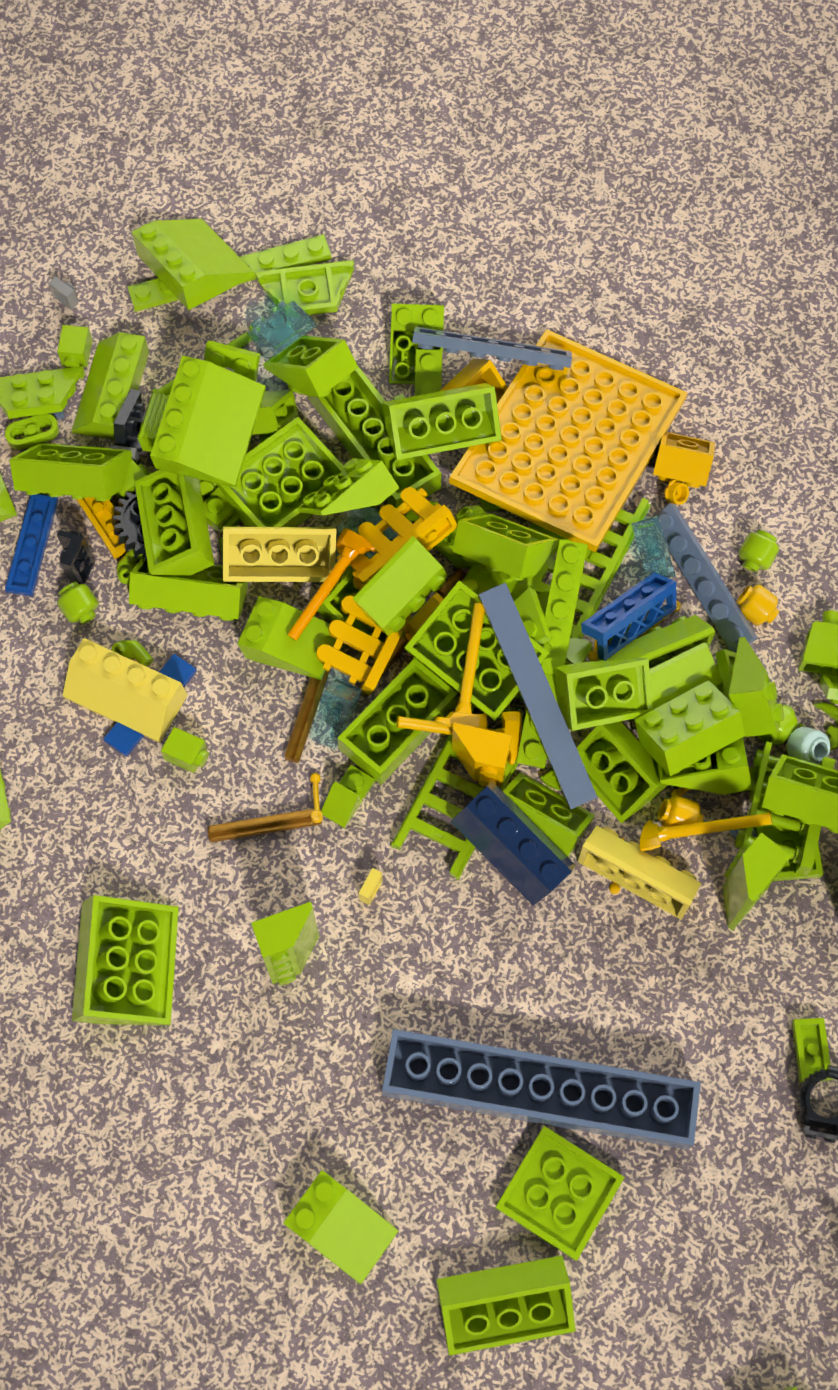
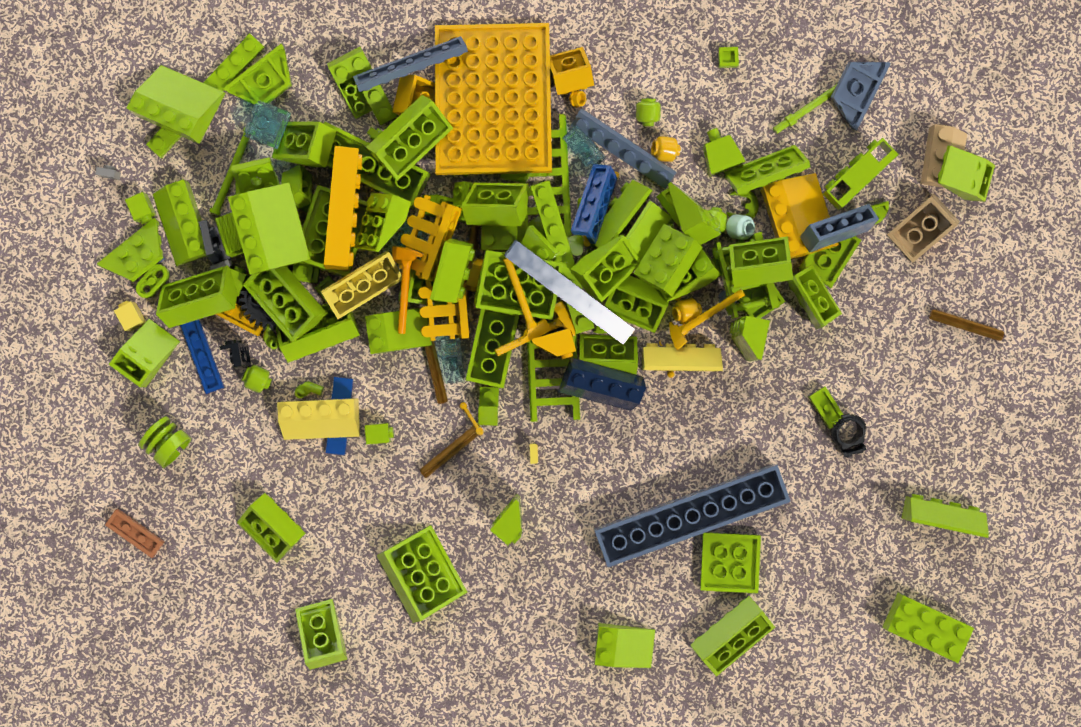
camera: 30 degrees left, 20 degrees up
(309, 450) = (341, 208): none -> yellow brick

